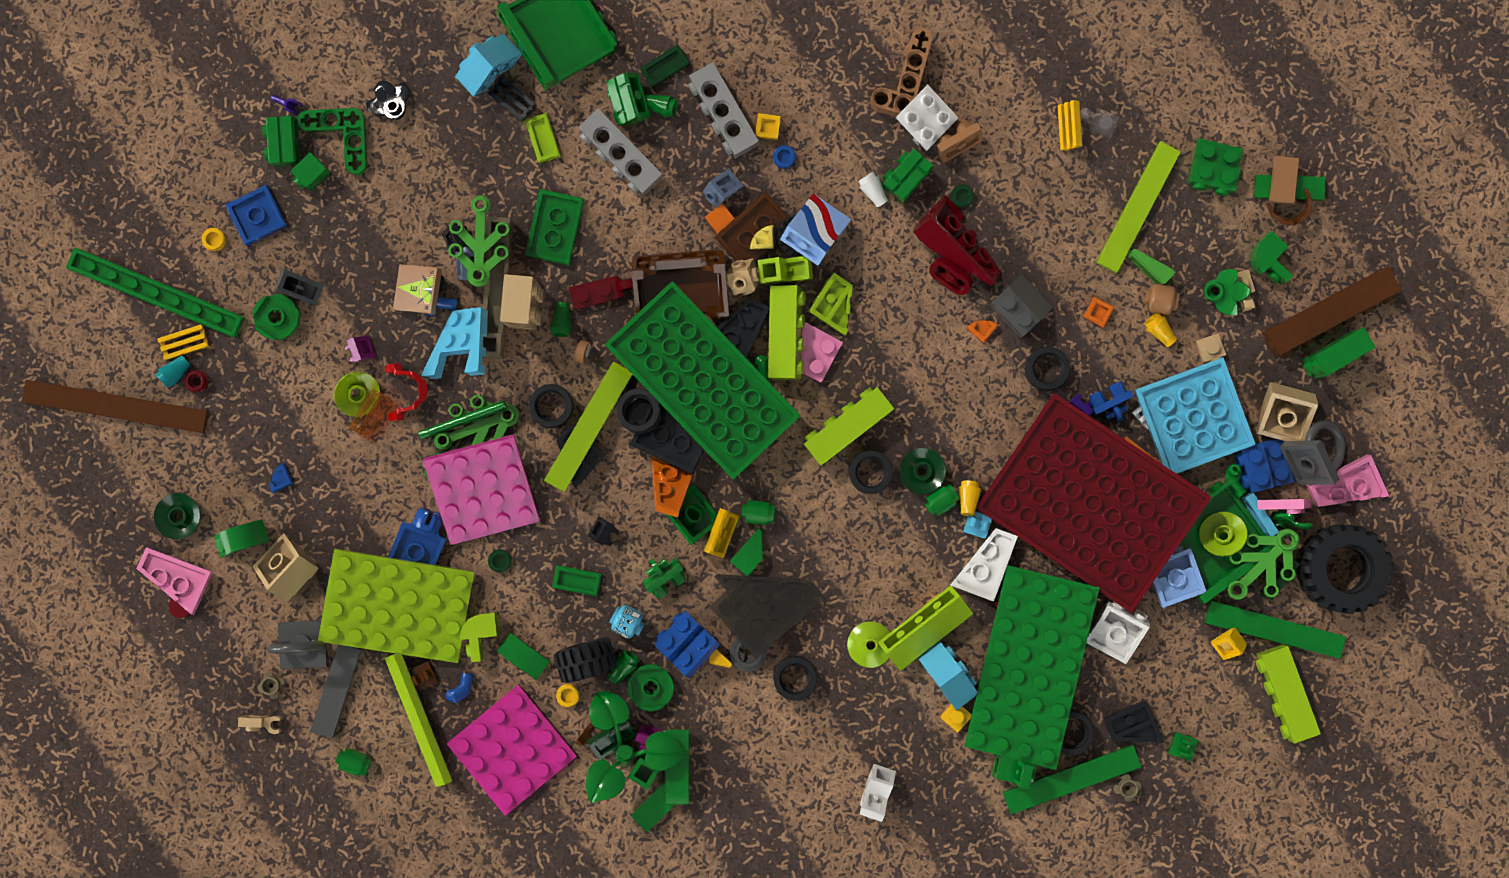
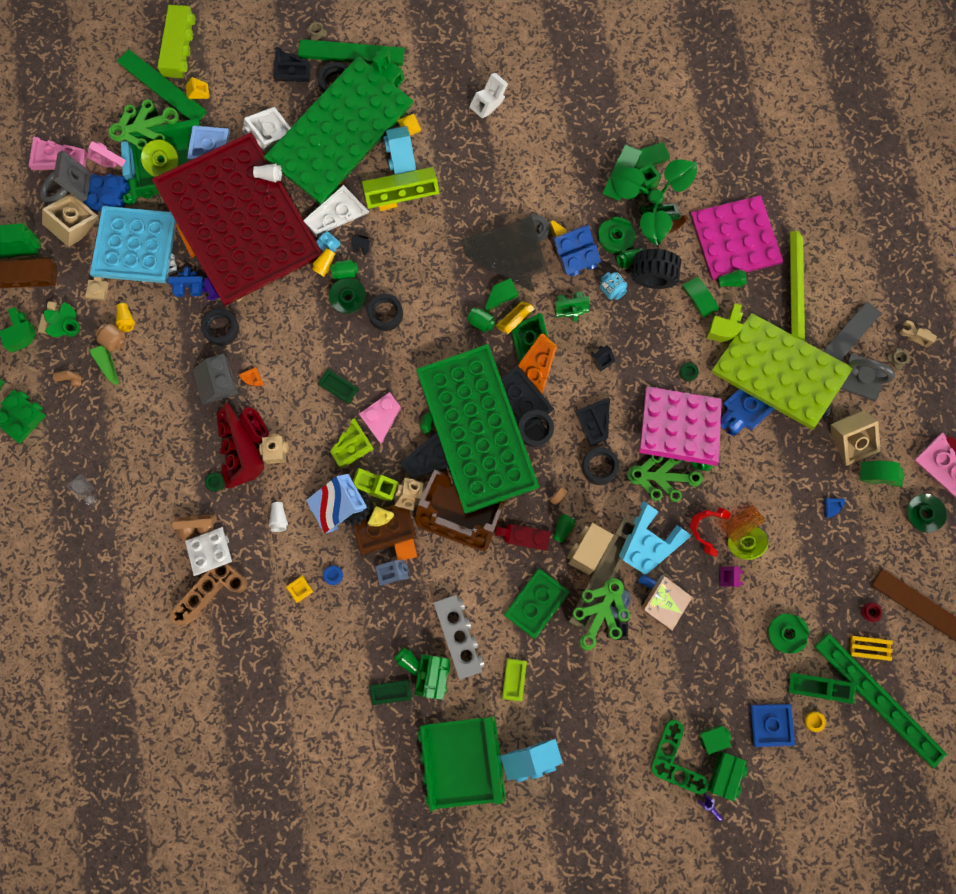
camera: 155 degrees left, 10 degrees down
(173, 371) = (889, 627): teal cone -> none
(218, 276) = (823, 688): none -> green slope
(298, 287) = (761, 648): dark grey slope -> none
(353, 762) = (857, 277): green brick -> none
(386, 98) = (625, 773): black plate -> none
(423, 676) = (781, 315): reddish brown tile -> none
(461, 691) = (761, 291): blue arm -> none
(462, 420) = (673, 485): green bar -> none
(494, 694) = (733, 279): none -> green cone
(499, 88) = (532, 738): black tile -> none
(568, 695) = (683, 255): yellow tile -> none
(576, 580) = (637, 332): green tile -> none
(588, 427) = (579, 435): lime tile -> none
(644, 732) = (633, 205): magenta tile -> none
(710, 78) = (356, 643): light grey brick -> none
(767, 126) = (333, 604): yellow plate -> none
(786, 332) = (397, 438): lime brick -> none
(790, 695) = (509, 209): black tyre -> none
(812, 126) = (299, 589): none -> yellow tile
(848, 426) = (384, 350): lime brick -> none
(858, 640) = (446, 205): lime dish -> none
(881, 363) = (338, 386): none -> dark green tile
(907, 176) = (247, 515): green brick -> none
(915, 250) = (274, 449): none -> tan brick
(939, 543) = (362, 241): none -> black tile
(1069, 125) = (108, 497): yellow tile -> none
(1083, 570) = (268, 172): none -> white cone
(1098, 312) = (161, 351): orange tile -> none
(1138, 207) = (90, 414): lime tile -> none
(1182, 746) = (265, 41): green tile -> none
(1186, 236) = (68, 375): none -> medium nougat arm
(1282, 520) = (116, 150): green plate -> none
(1374, 575) = (78, 83): black tyre -> none

